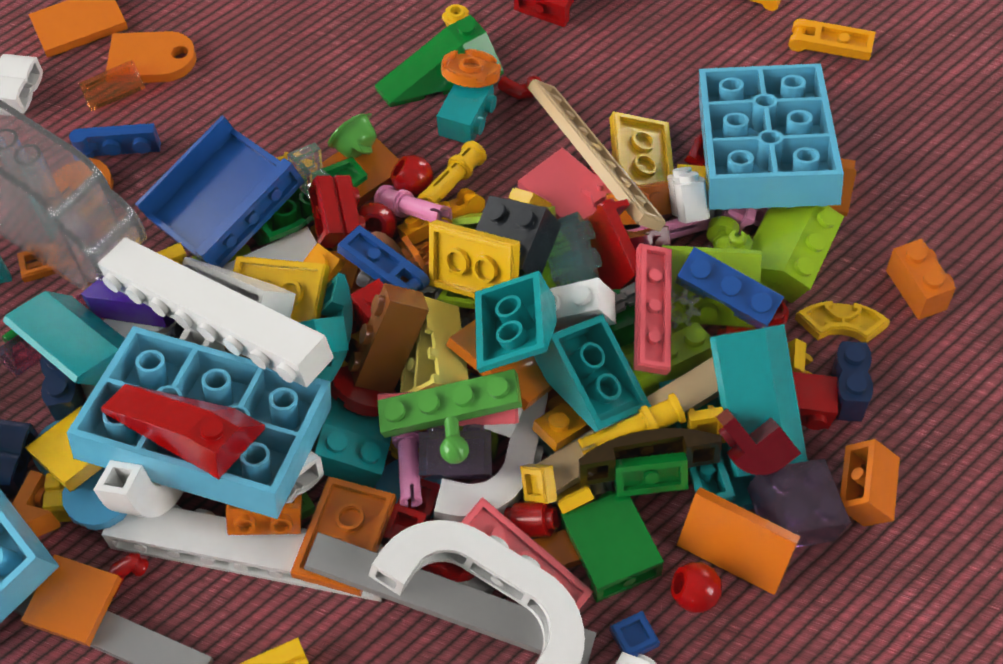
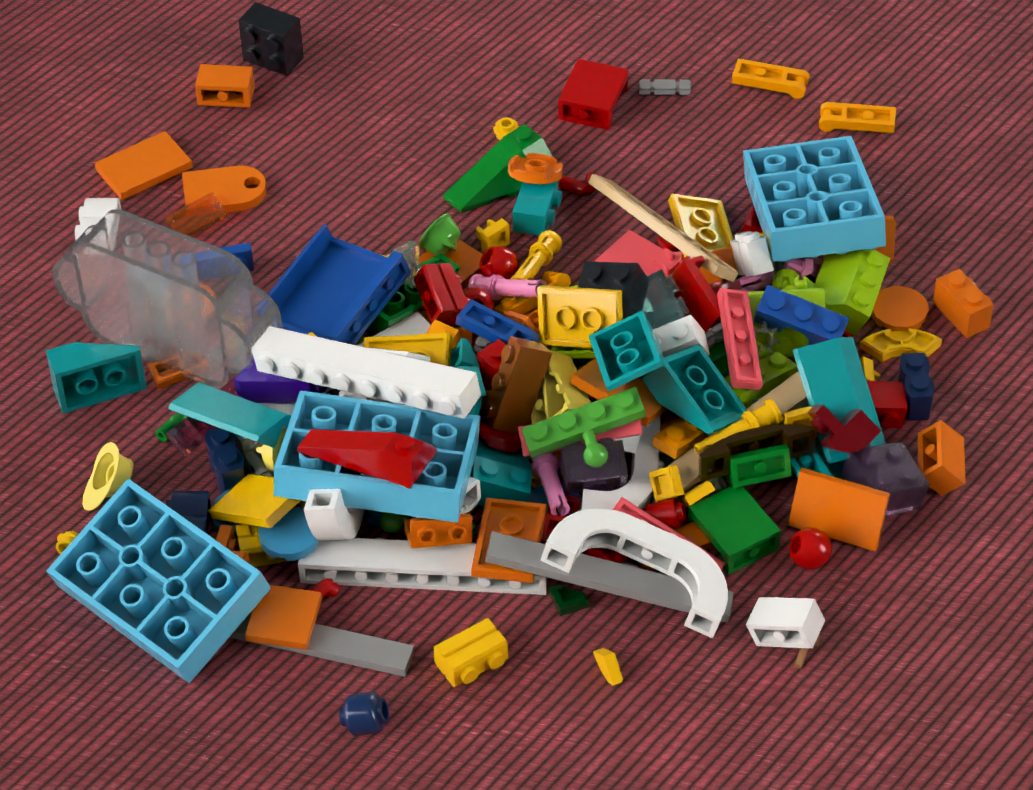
camera: 10 degrees left, 10 degrees down
(403, 618) = (567, 600): none -> dark green tile
(416, 140) = (495, 234): none -> yellow tile
(634, 635) = (763, 587): blue tile -> none
(848, 276) = (900, 309): none -> orange tile

